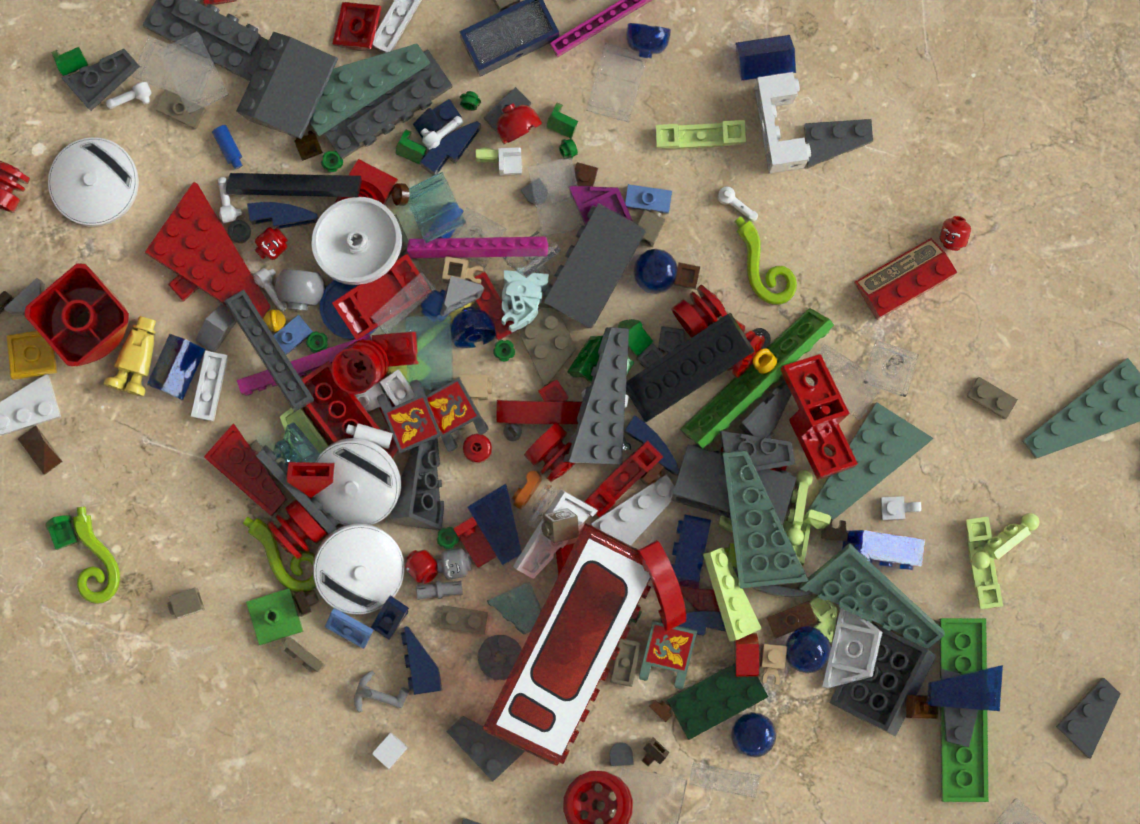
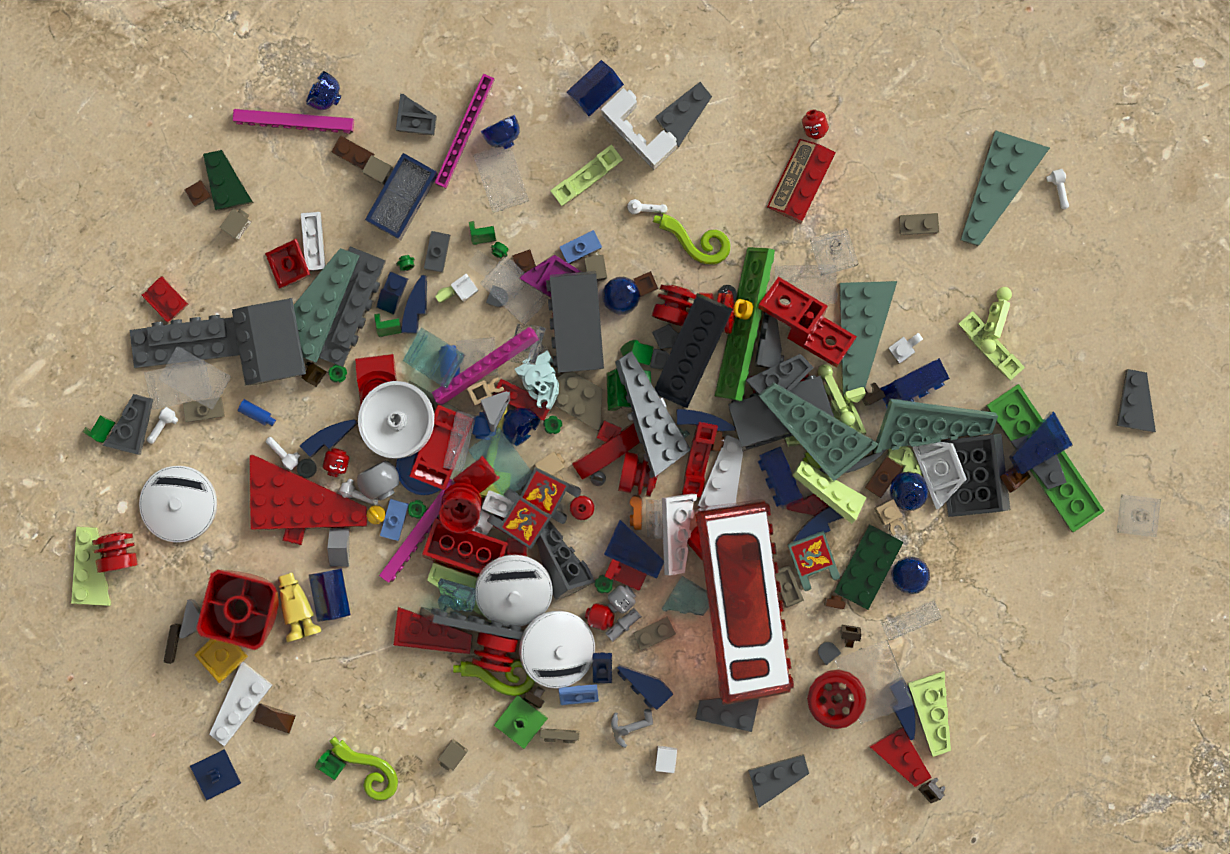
camera: 30 degrees left, 5 degrees up
(209, 386) = (362, 592): white plate -> none
(269, 350) = (388, 540): dark grey tile -> none
(294, 185) = (323, 409): black tile -> none
(310, 477) = (480, 610): red slope -> none
(370, 434) = (501, 550): white cylinder -> none
(400, 194) = (403, 364): reddish brown tile -> none
(432, 139) = (398, 310): white piece -> none
(487, 653) = (692, 632): dark grey plate -> none
(516, 122) = (451, 257): red cylinder -> none
(560, 525) = (679, 524): dark tan brick -> none
(665, 585) = (780, 515): red slope -> none
(747, 656) = (870, 524): red slope -> none

